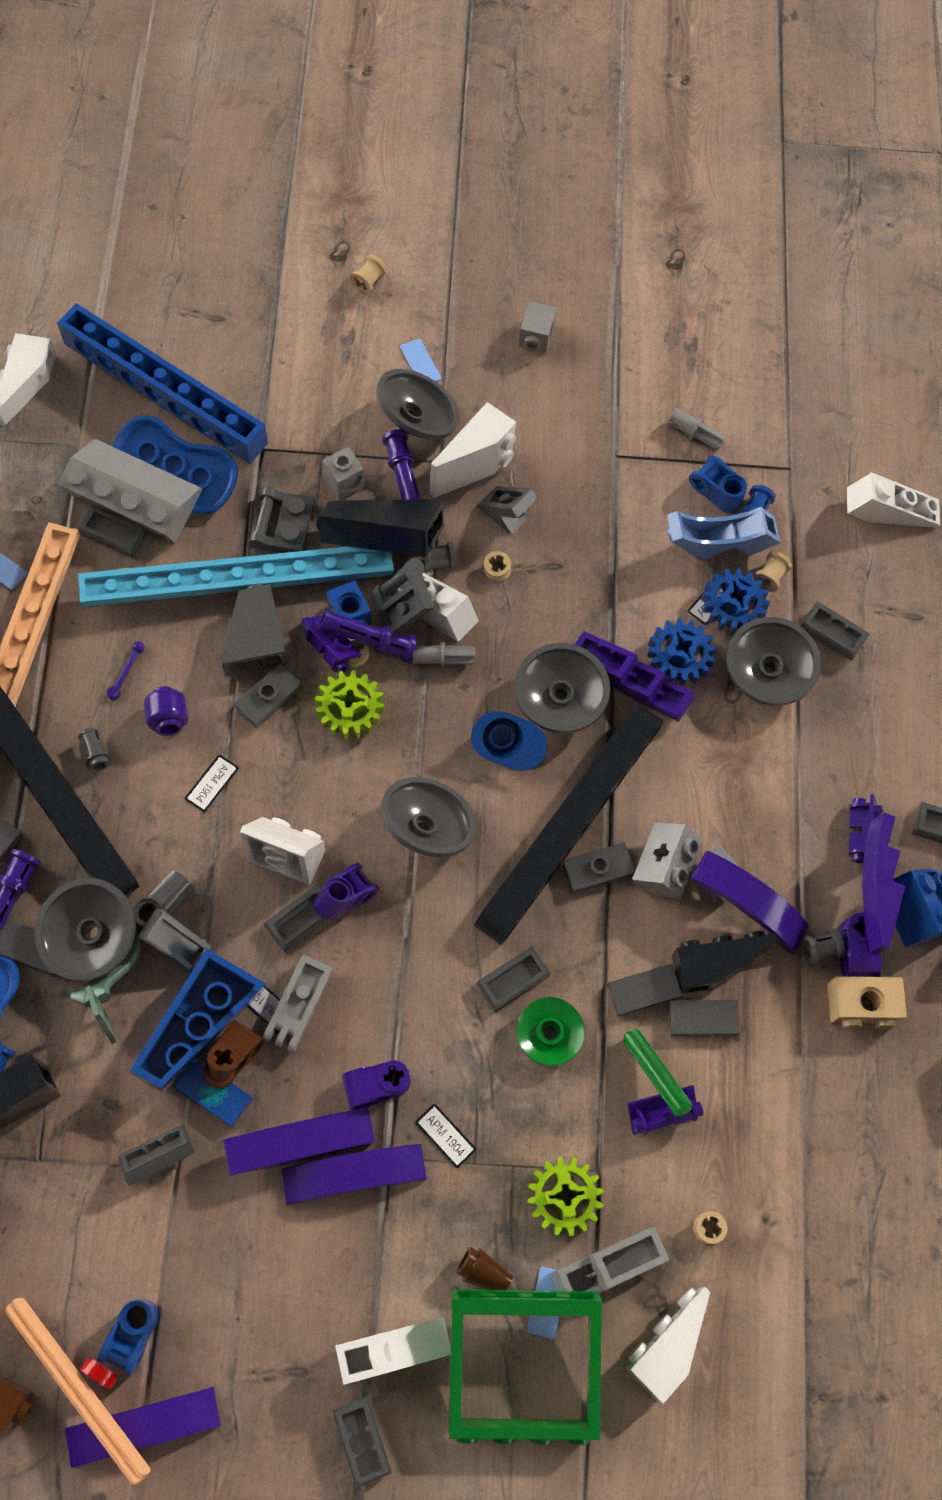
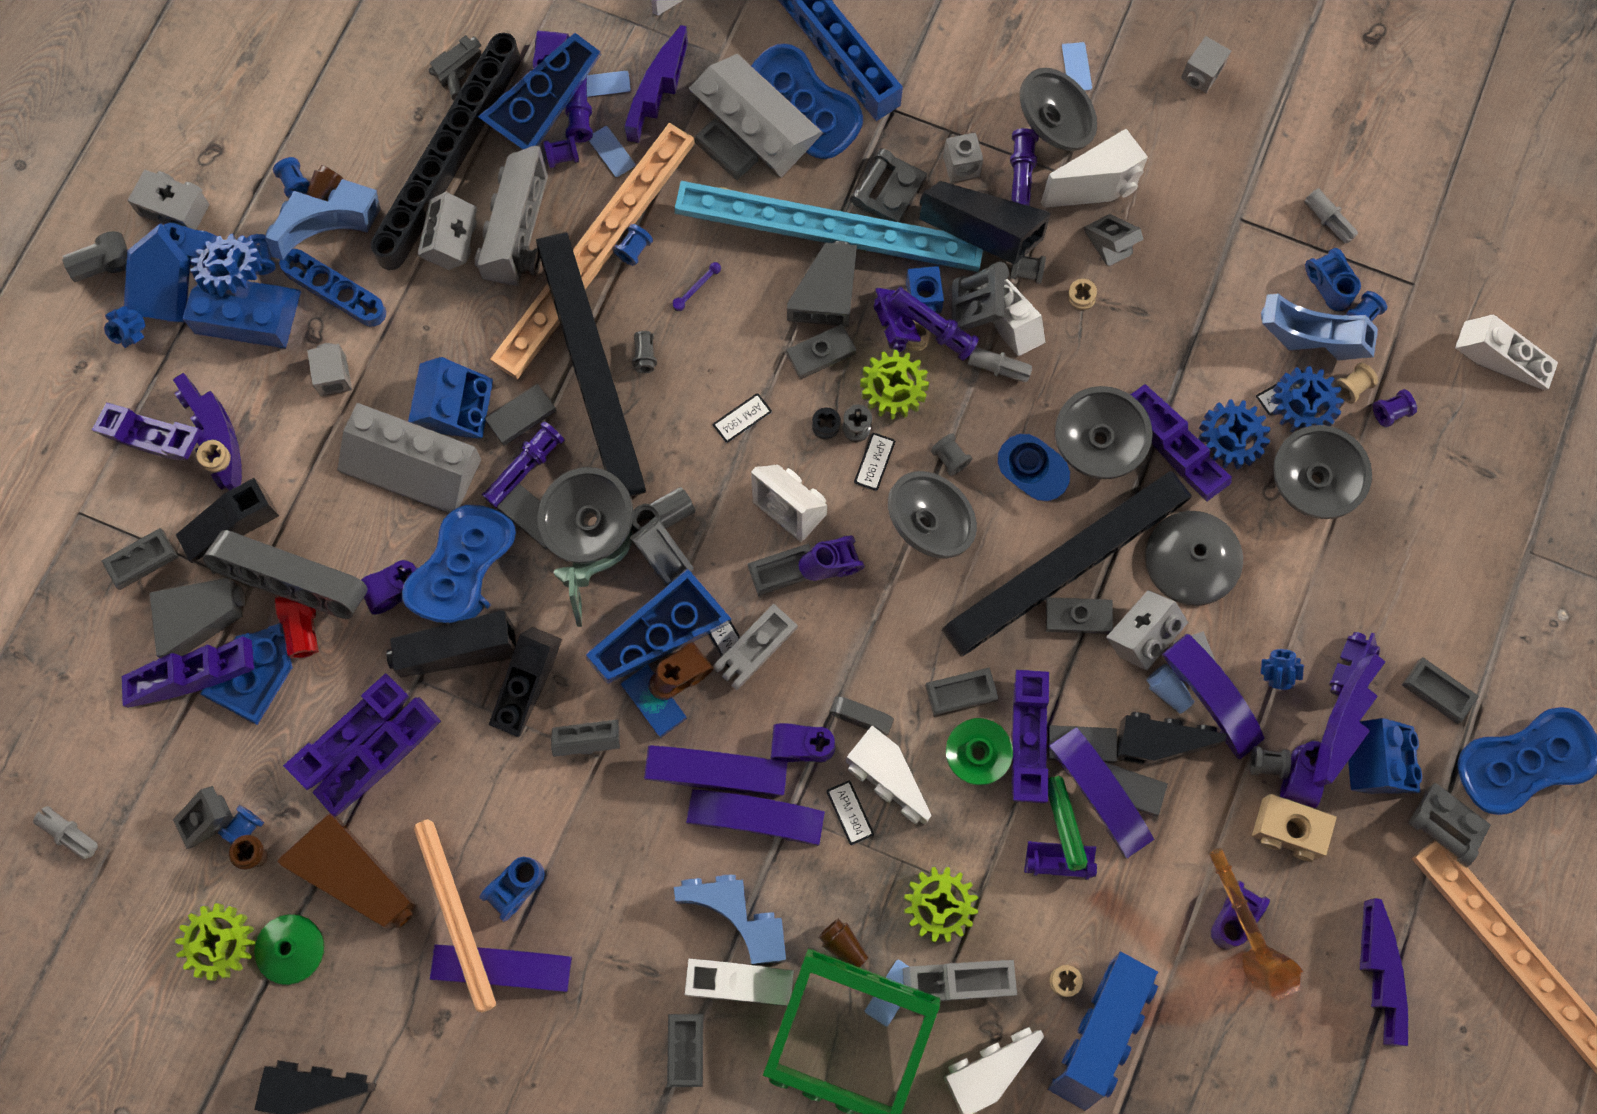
camera: 25 degrees right, 5 degrees up
(25, 483) = (659, 78): none -> dark purple slope
(49, 649) = (633, 244): none -> blue bush
(74, 1117) = (524, 680): none -> black slope
(98, 1373) = (477, 908): red tile -> none
(165, 711) = (721, 336): dark purple head -> none
(298, 771) = (826, 414): none -> black bush
(333, 747) = (865, 418): none -> dark grey bush
(352, 1266) = (727, 896): none -> medium blue arch
(355, 784) = (874, 461): none -> white sticker
(425, 1035) = (861, 715): none -> dark grey beam
(426, 754) = (951, 454): none -> dark grey bush
(465, 1078) = (884, 766): none -> white slope
(593, 1000) = (1030, 736): none -> dark purple slope
(680, 1029) = (1102, 792): none -> dark purple slope
(683, 796) = (1184, 574): none -> dark grey dish
(707, 908) = (1170, 688): none -> light blue cone
(766, 1266) = (1106, 1032): none -> blue wedge
(802, 855) = (1282, 669): none -> blue gear
(810, 587) = (1394, 408): none -> dark purple bush
(834, 630) = (1397, 461): dark grey plate -> none
(849, 1098) = (1228, 915): none -> dark purple piece
(887, 1144) = (1263, 966): none -> clear orange piece

